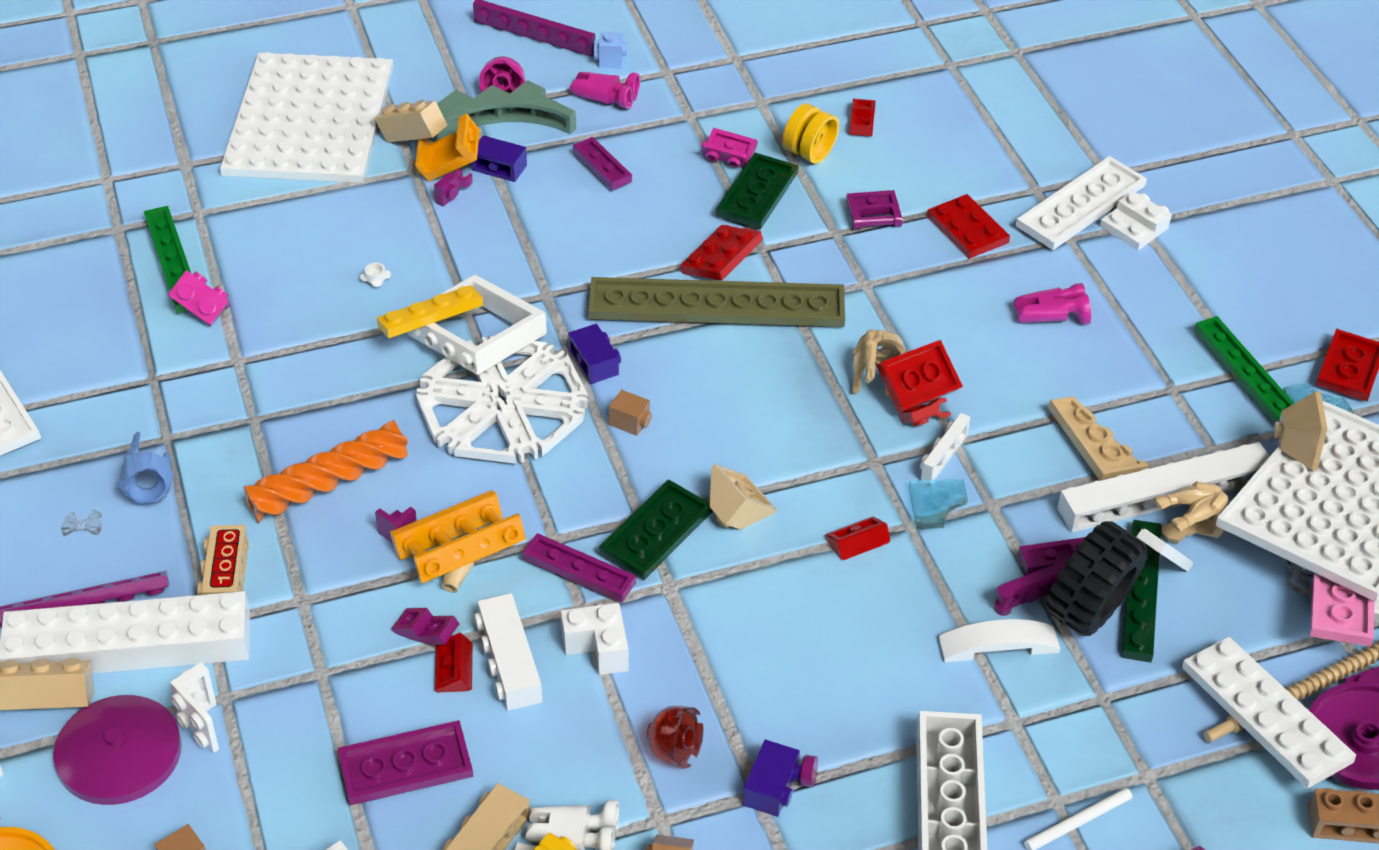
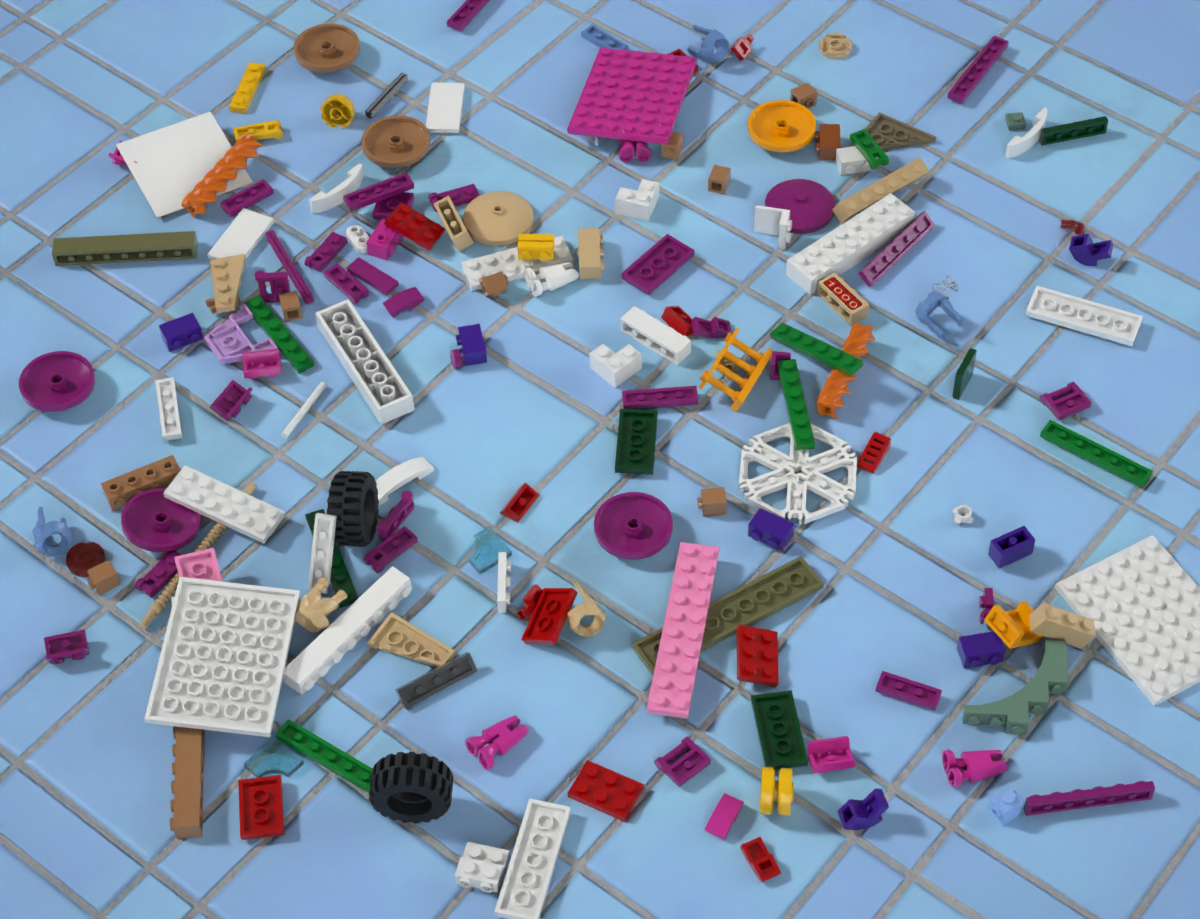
camera: 150 degrees right, 5 degrees up
(129, 315) = (1067, 405): none -> magenta plate
(199, 298) = (1041, 431): dark pink bracket -> none
(206, 385) = (964, 373): none -> dark green tile
(338, 504) = (816, 349): none -> green plate
(370, 212) = (1011, 547): none -> dark purple brick
(388, 380) = (878, 442): none -> red slope
(429, 311) = (884, 478): yellow plate -> none
(431, 458) = (795, 404): none -> green plate
(502, 73) = (1052, 721): dark pink cylinder -> none
(527, 320) = (852, 525): white window -> none
(675, 735) = (534, 333): clear red cylinder -> none
(737, 499) = (602, 480): tan slope -> none
(739, 100) = (863, 813): none -> dark purple brick
(747, 424) = (633, 525): none -> magenta dish
(775, 303) = (683, 630): none -> bright pink plate
(866, 155) = (724, 816): none -> dark pink slope
(1099, 390) = (436, 680): none -> dark grey plate
(1198, 248) = (411, 787): none -> black tyre
(1303, 430) = (267, 669): tan slope -> none

